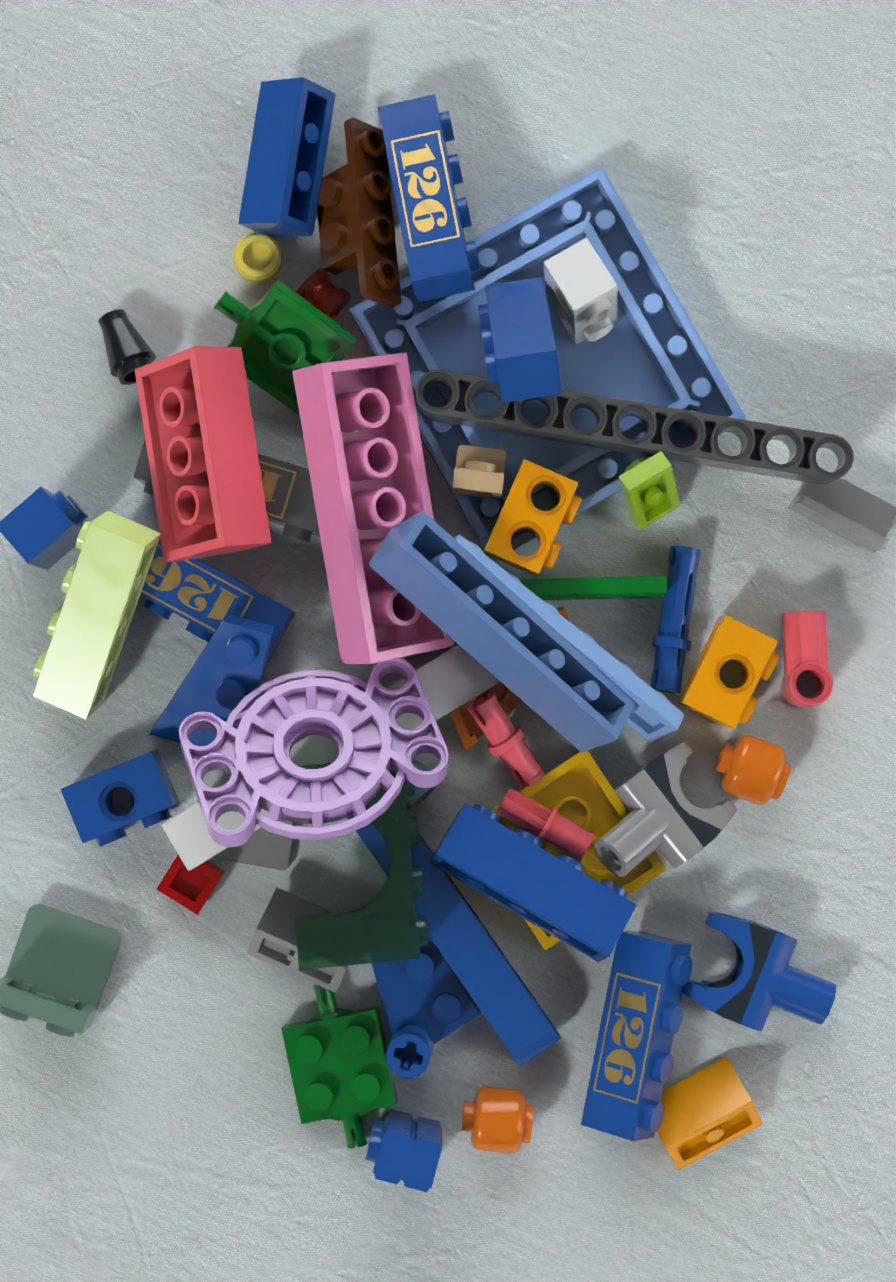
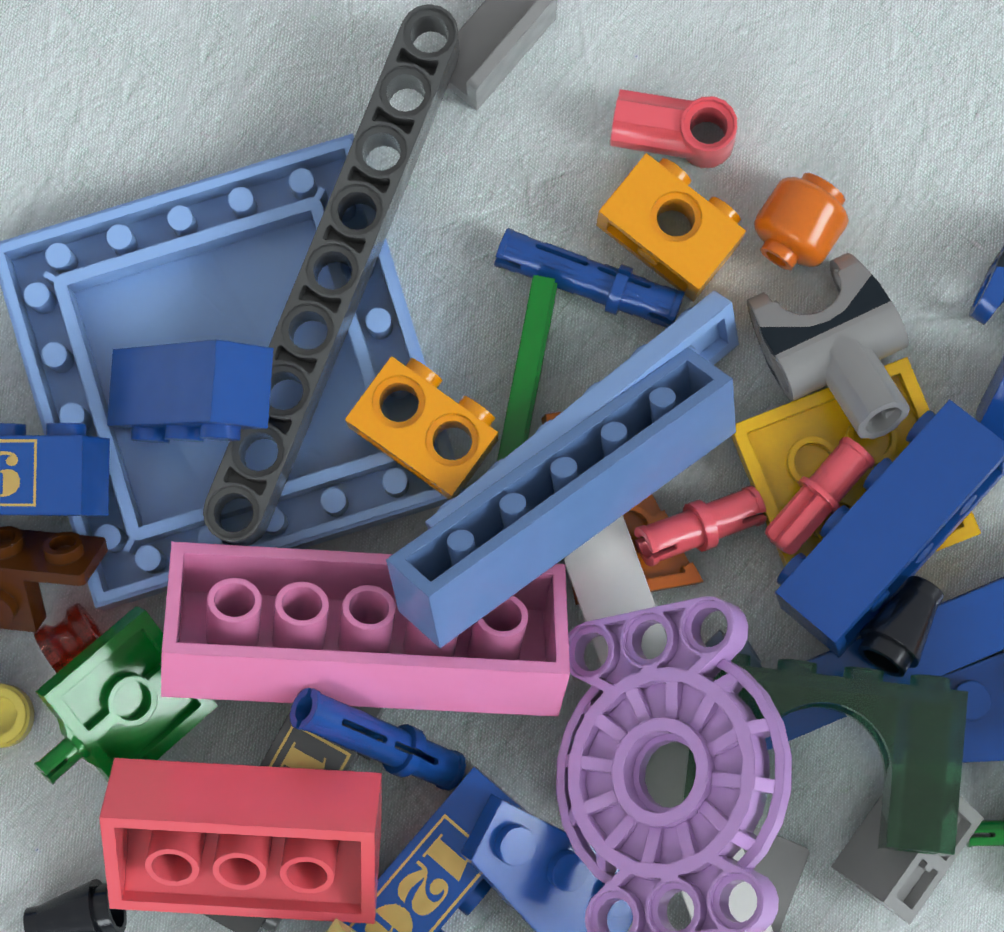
camera: 80 degrees left, 5 degrees down
(301, 492) = (430, 761): none -> blue pin
(458, 902) = (901, 628): none -> black cone
(479, 472) = (348, 482): tan bracket -> none
(581, 292) = (145, 301): white brick -> none
(649, 489) = (417, 272): lime plate -> none

